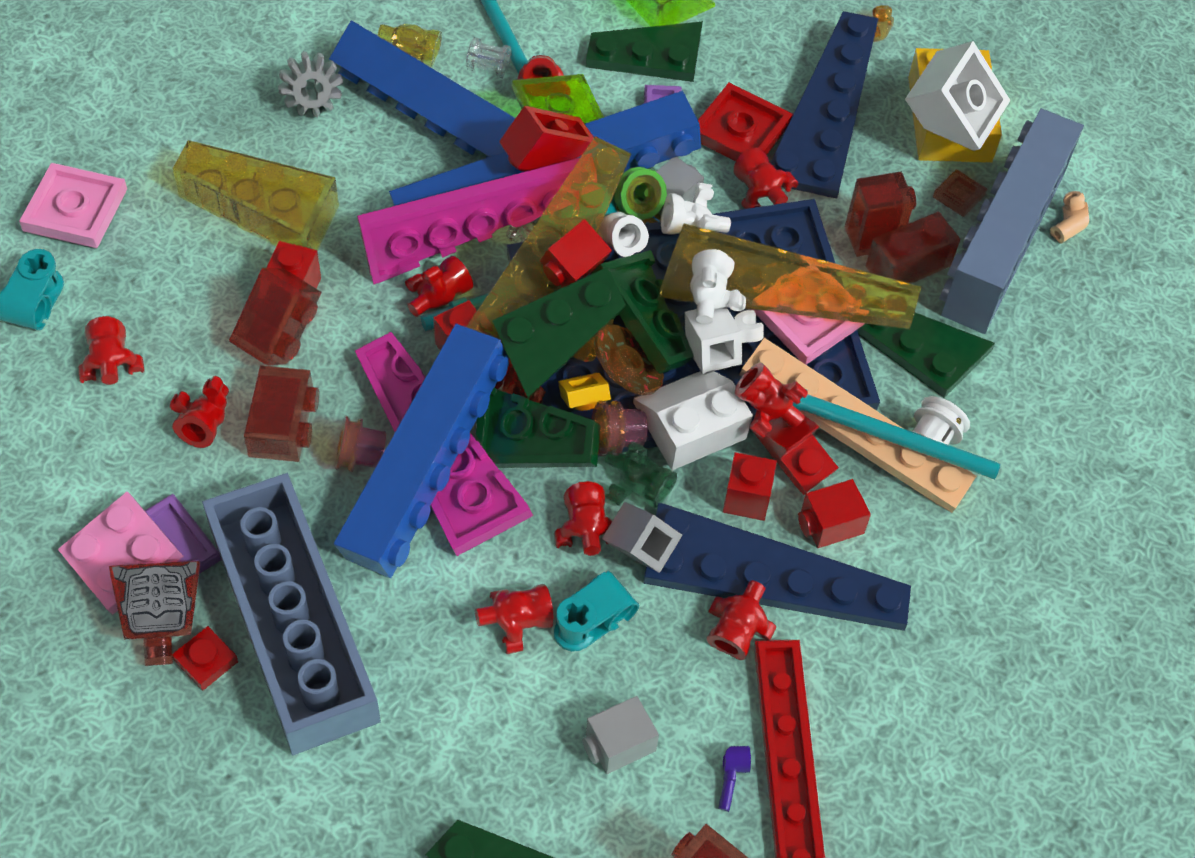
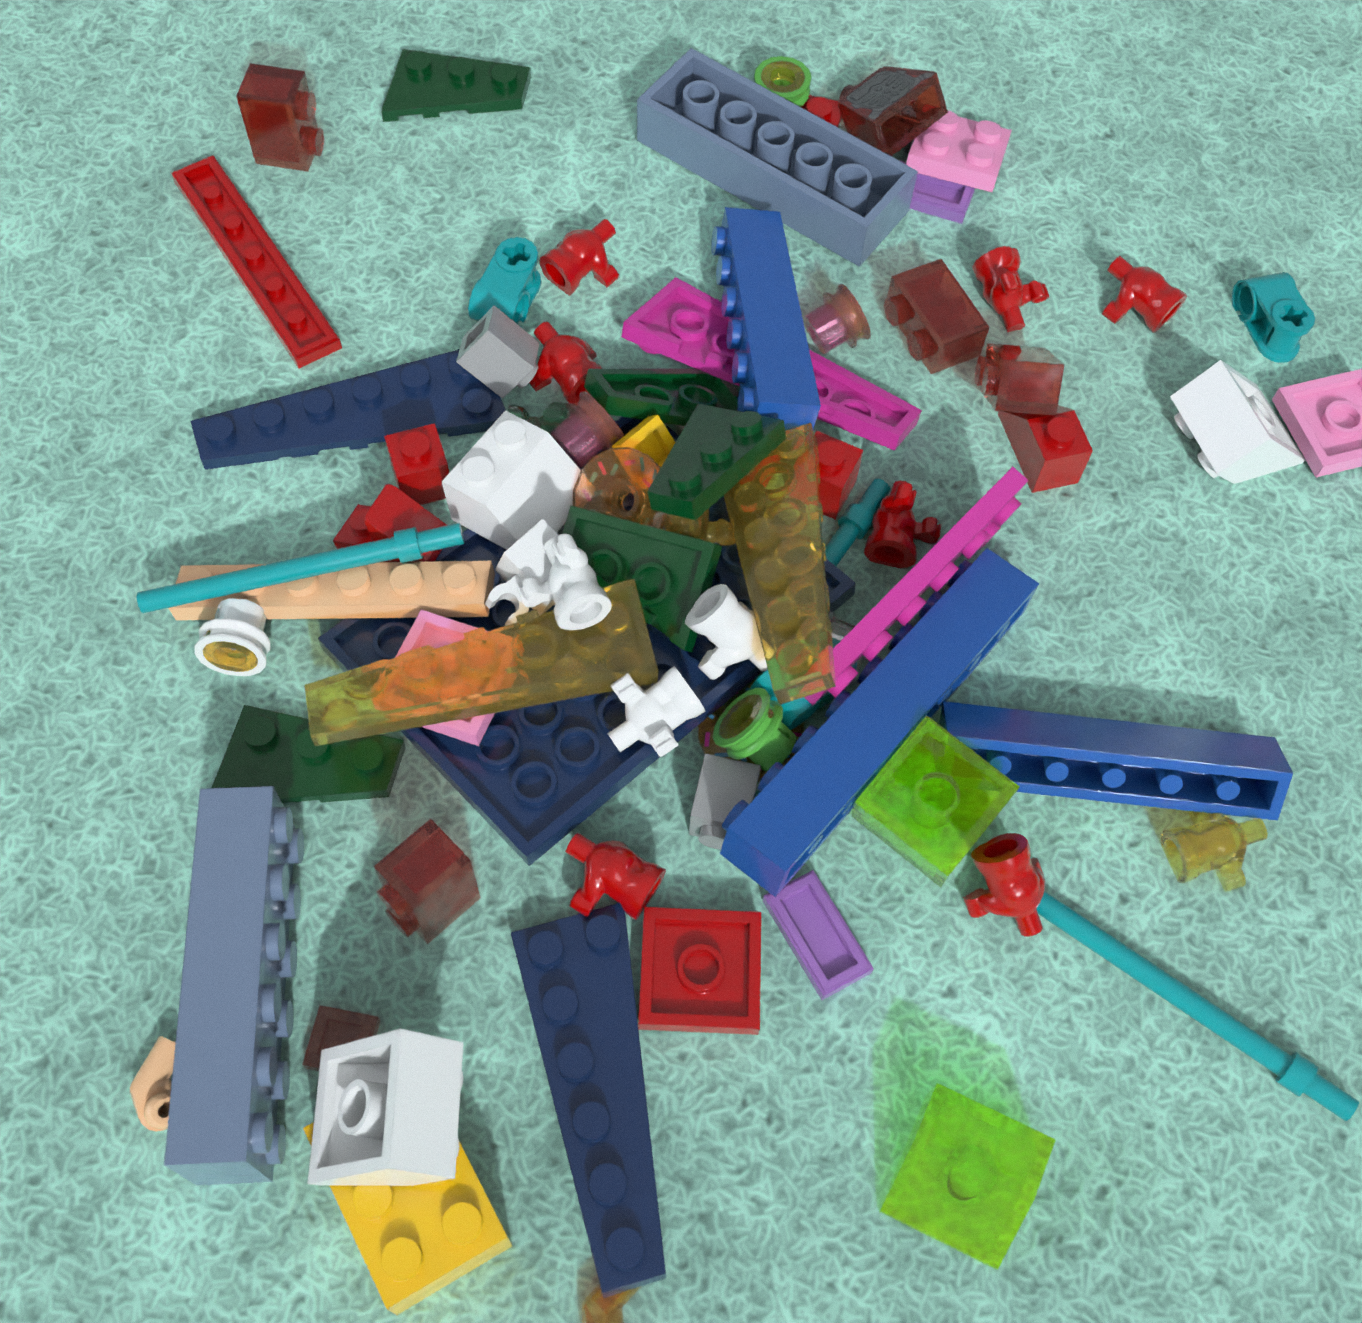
camera: 150 degrees right, 5 degrees up
(150, 231) = (1233, 426): none -> white slope
(211, 674) = (785, 78): none -> piece
(258, 194) = (1171, 519): clear yellow wedge -> none
(324, 86) = (1260, 688): light grey gear -> none
(488, 57) = (1101, 882): clear bush -> none
(544, 139) = (895, 693): red slope -> none
(574, 255) = (744, 521): red brick -> none
(620, 735) = (419, 203): light grey brick -> none
(648, 51) = (909, 1044): dark green wing -> none
(736, 760) = (306, 239): dark purple hand -> none
(739, 621) = (362, 339): red piece -> none
(770, 398) = (434, 502): red piece -> none
(834, 514) = (314, 486): red brick -> none
(914, 250) = (346, 882): clear red brick -> none

